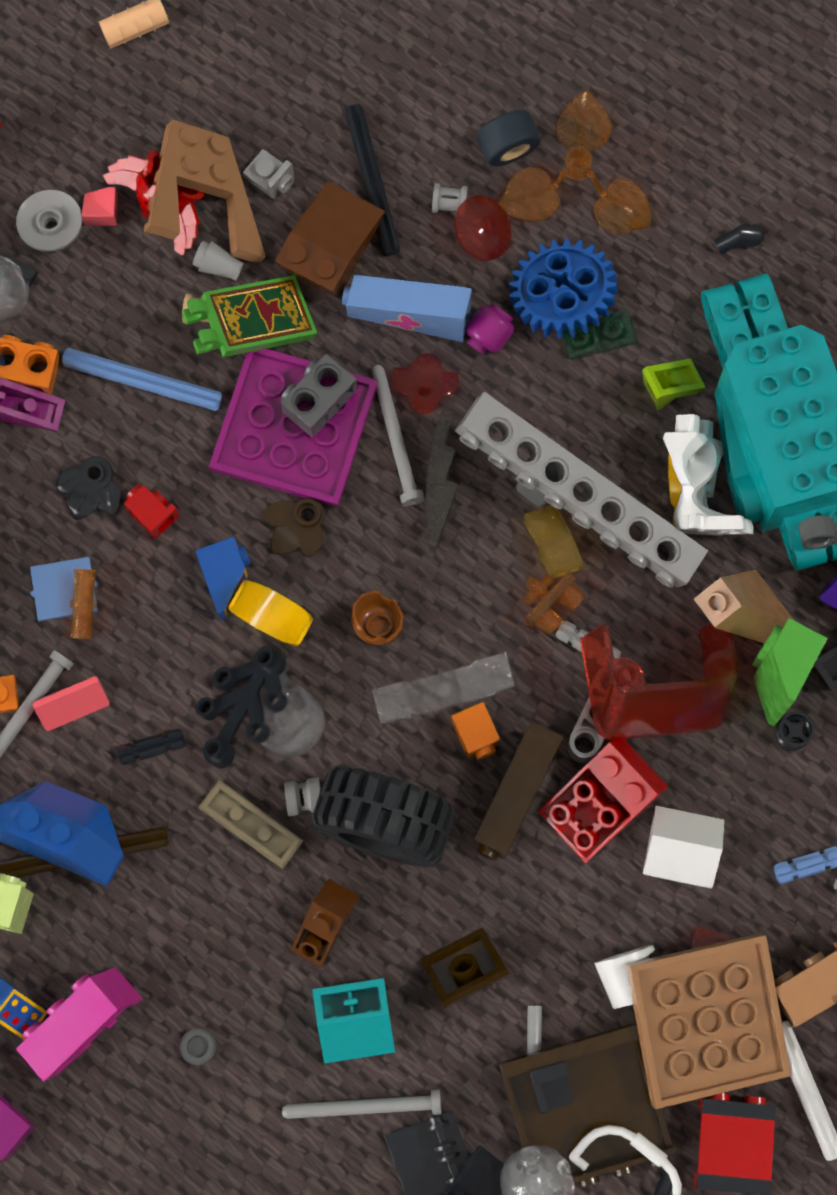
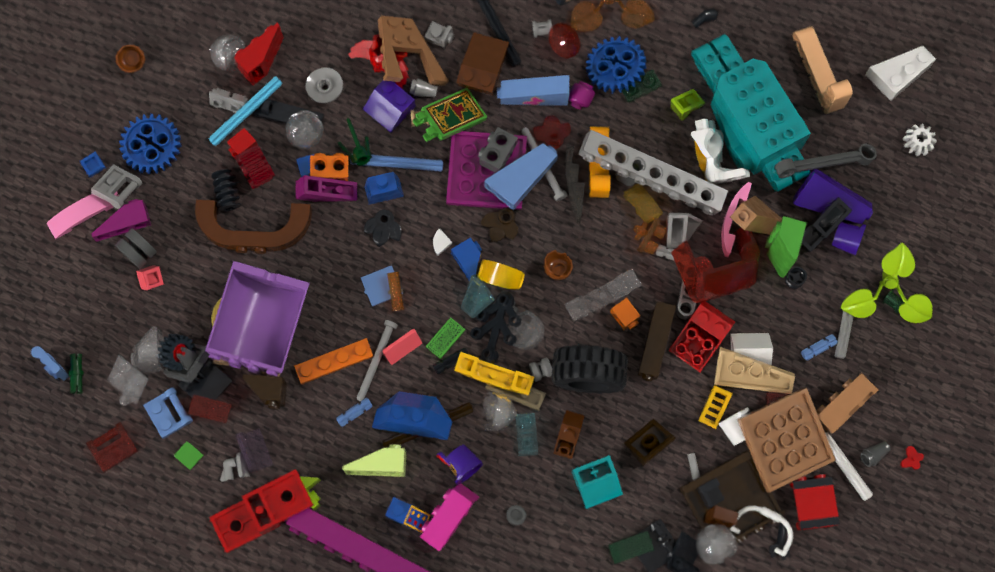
camera: 15 degrees left, 0 degrees up
(79, 353) = (361, 155): none -> dark green plant
(100, 207) = (350, 72): coral slope -> none
(106, 419) = (383, 188): none -> blue torso
(123, 933) = (462, 463): none -> dark purple hat
(150, 510) = (419, 232): red brick -> none
(151, 705) = (445, 338): none -> bright green tile
(152, 277) = (389, 105): none -> dark purple slope
(183, 534) = (440, 242): none -> white tile
(210, 855) = (498, 411): none -> clear cylinder
(216, 787) = (493, 374): none -> yellow slope
(220, 645) = (476, 297): none -> clear light blue slope
(251, 906) = (526, 434): none -> clear light blue slope
(347, 449) = (520, 176): none -> medium blue slope
(365, 1106) = (649, 516): light grey bar -> none
(386, 1151) = (631, 547): none -> clear green slope
(486, 480) = (599, 177): none -> light orange beam
(559, 1134) = (721, 516): none -> reddish brown piece
(610, 599) = (680, 228): none -> light grey slope
(616, 906) = (727, 394): none -> yellow slope
(671, 885) = (748, 373): none -> tan wing
(689, 636) = (726, 238): none -> bright pink slope

